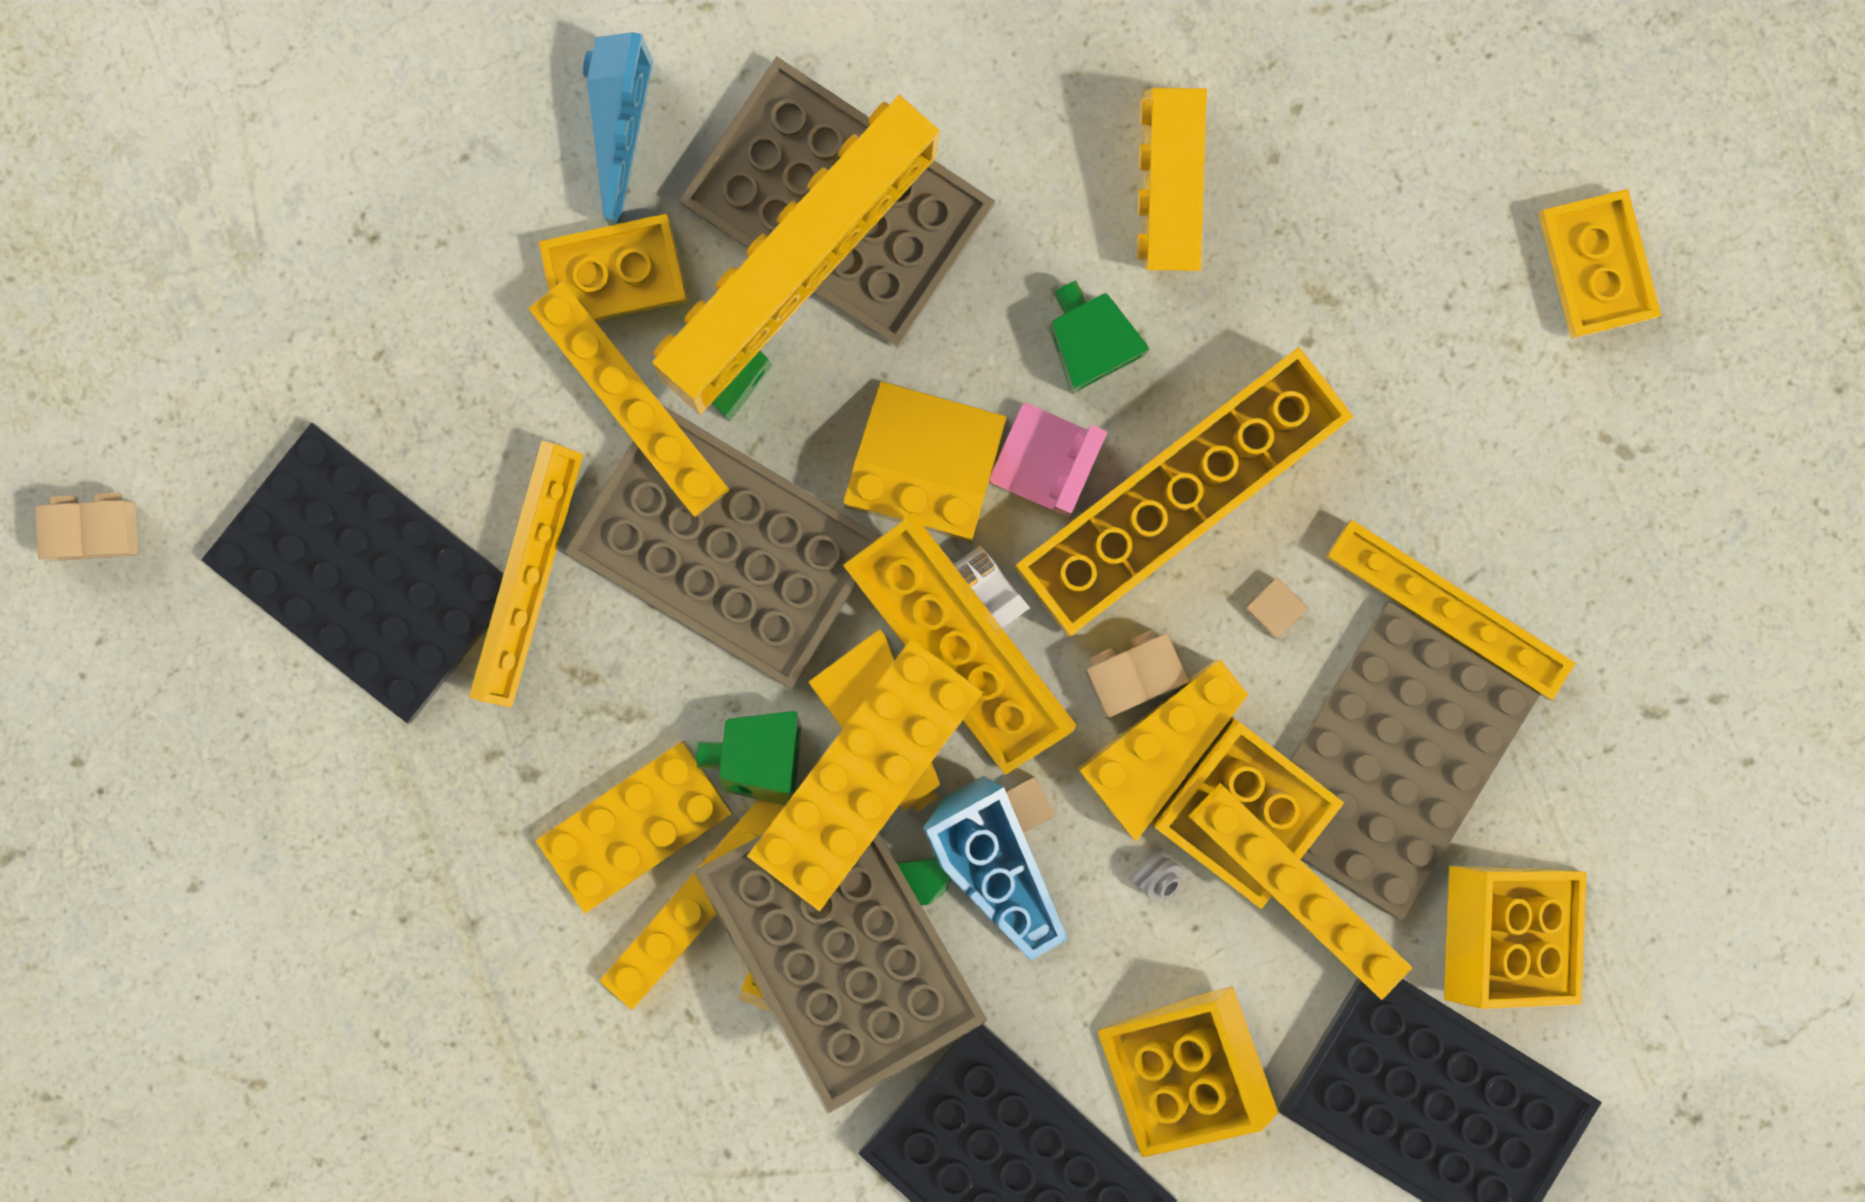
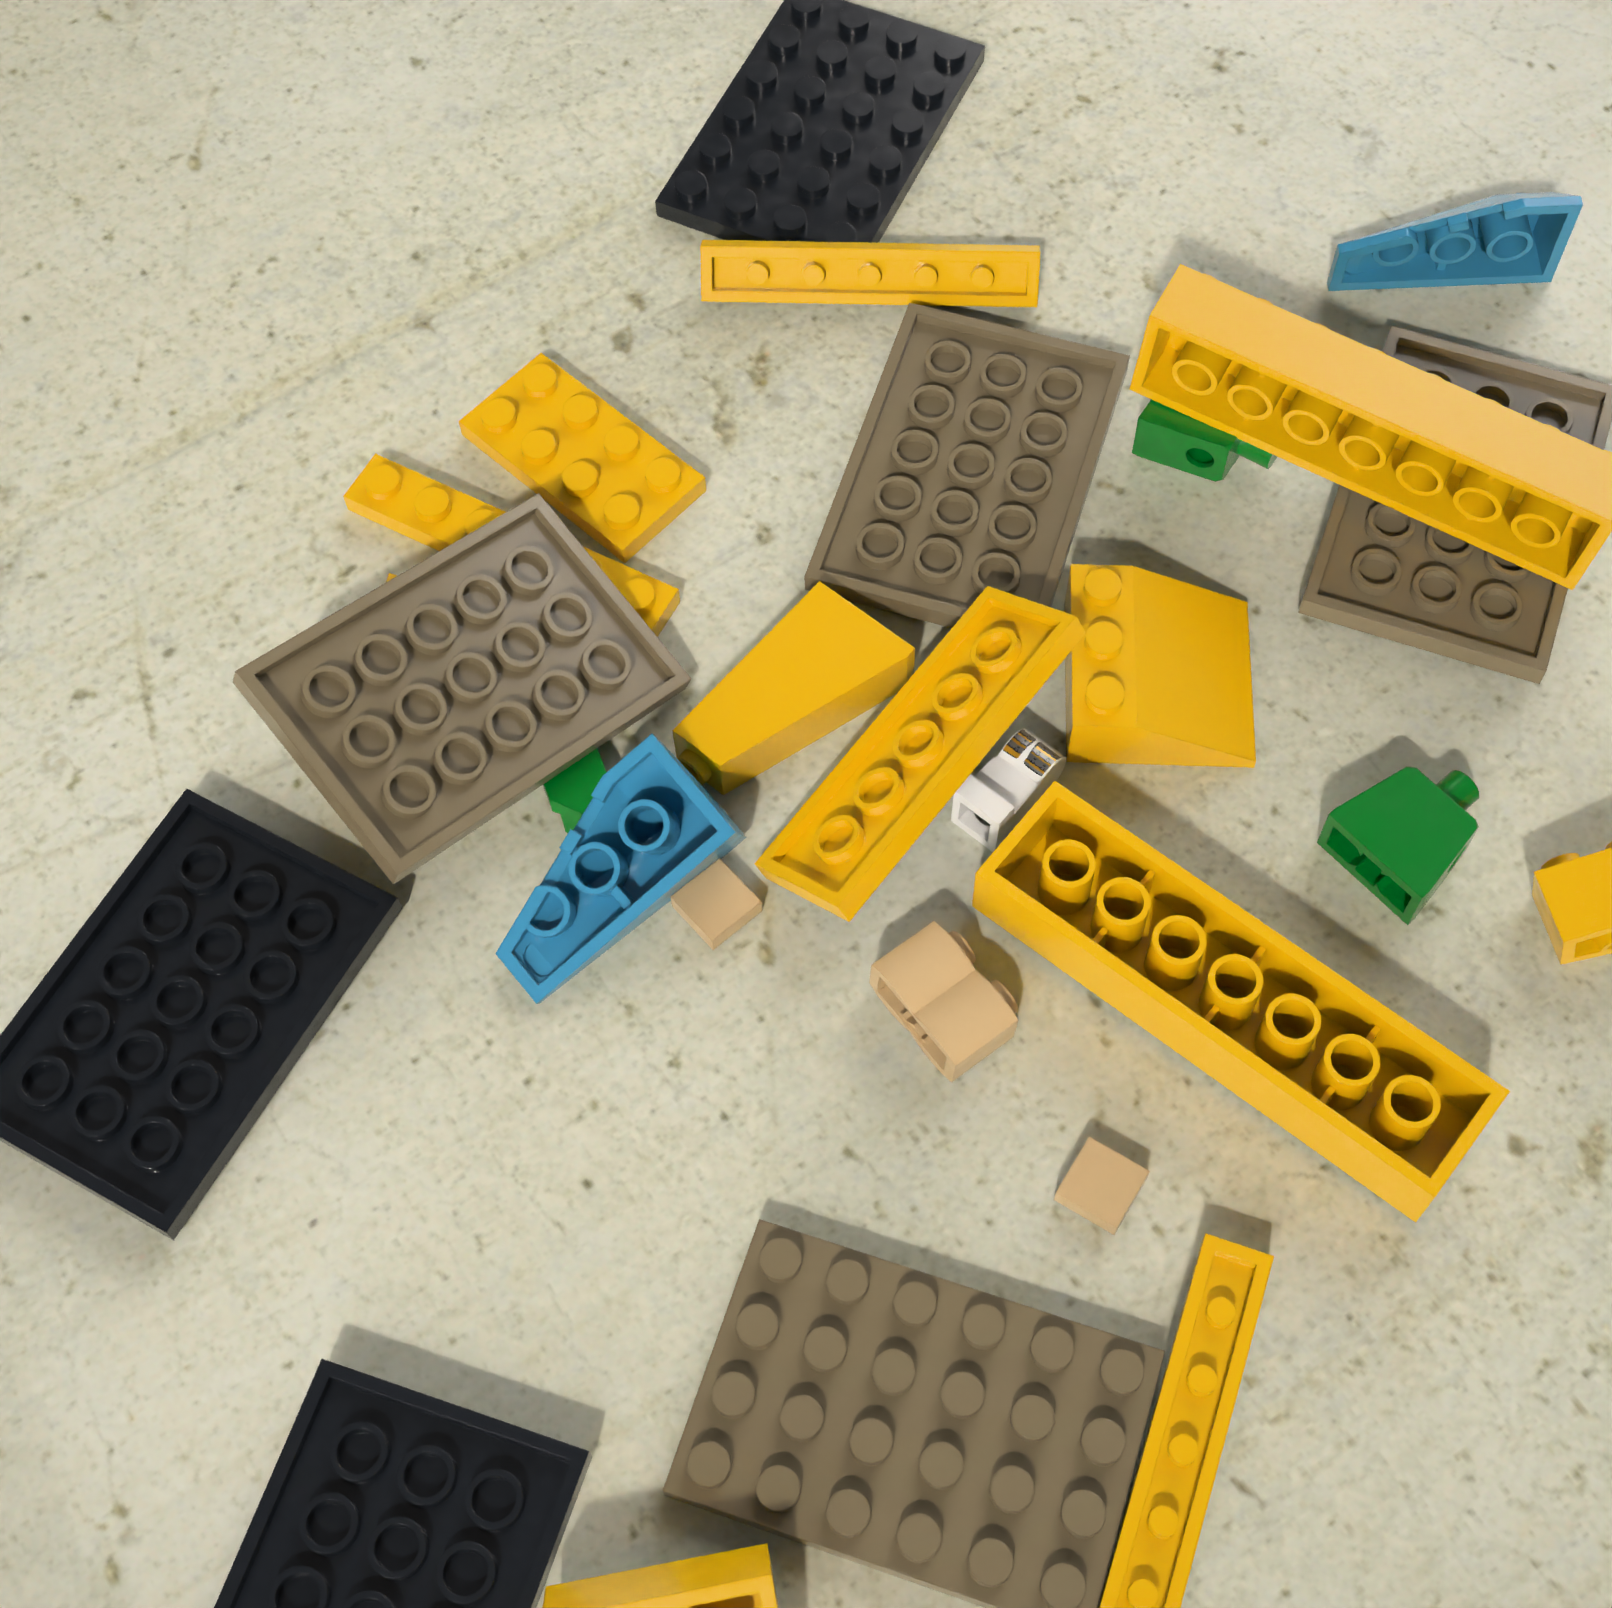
camera: 80 degrees right, 25 degrees down
(618, 267) = (1277, 261): yellow plate -> none
(628, 399) = (1114, 327): yellow plate -> none
(756, 756) = (707, 556): green torso -> none
(865, 774) = (713, 662): yellow plate -> none
(1047, 459) = (1218, 819): bright pink bracket -> none
(1156, 753) = (836, 1047): yellow wedge -> none
(1158, 876) = (653, 1105): light grey plate -> none
(1189, 1073) = (366, 1214): yellow slope -> none
(1266, 784) = (780, 1187): yellow slope -> none
(1300, 891) = (670, 1294): yellow plate -> none

